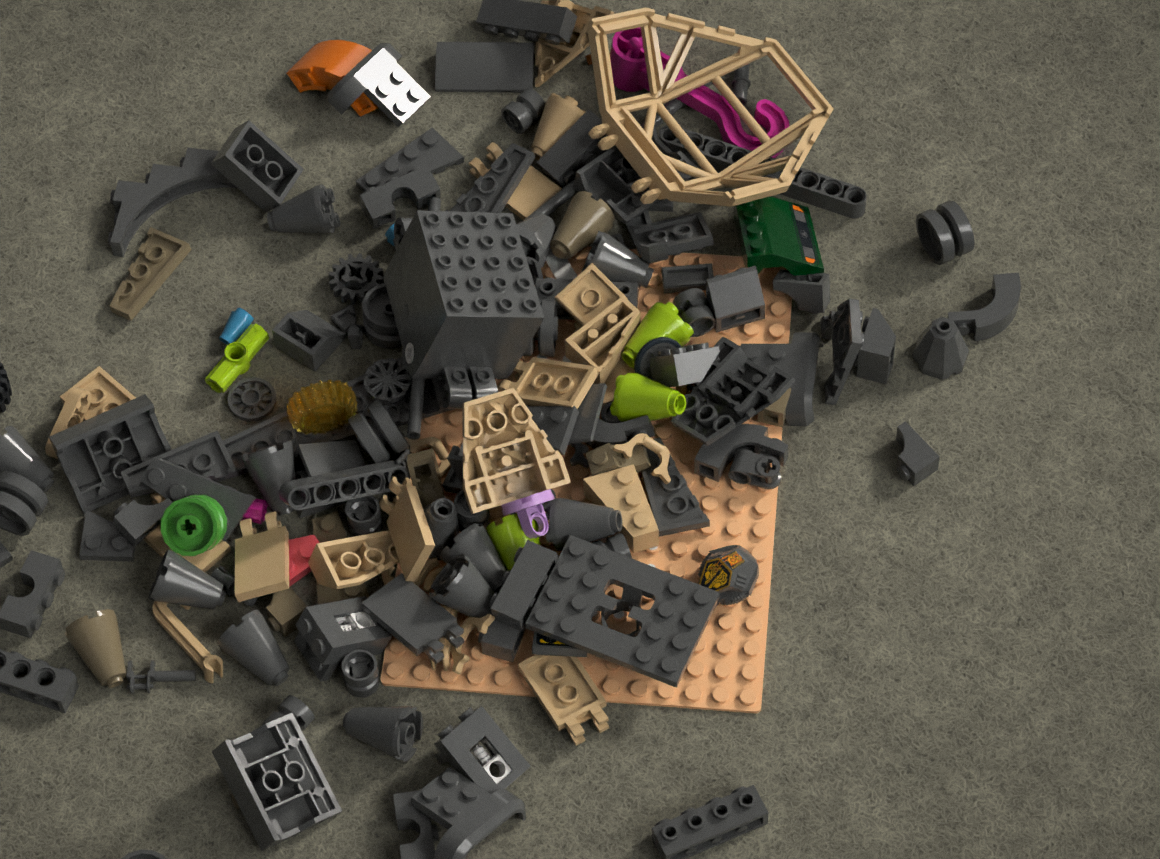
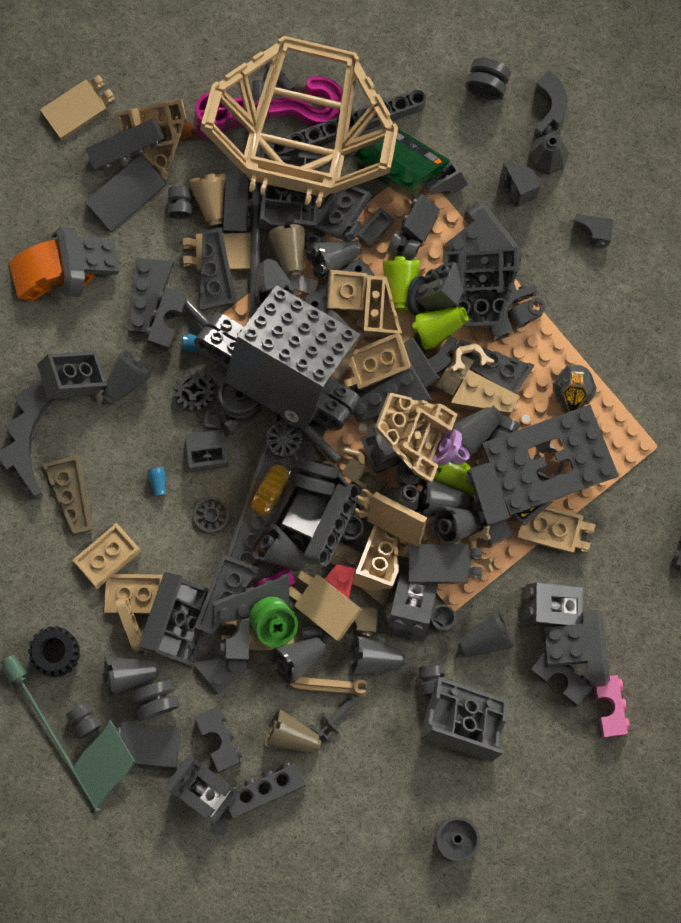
camera: 50 degrees left, 20 degrees up
(117, 351) = (106, 555): none -> tan tile
(245, 349) = (181, 510): lime piece -> none
(846, 336) = (506, 193): dark grey wing -> none

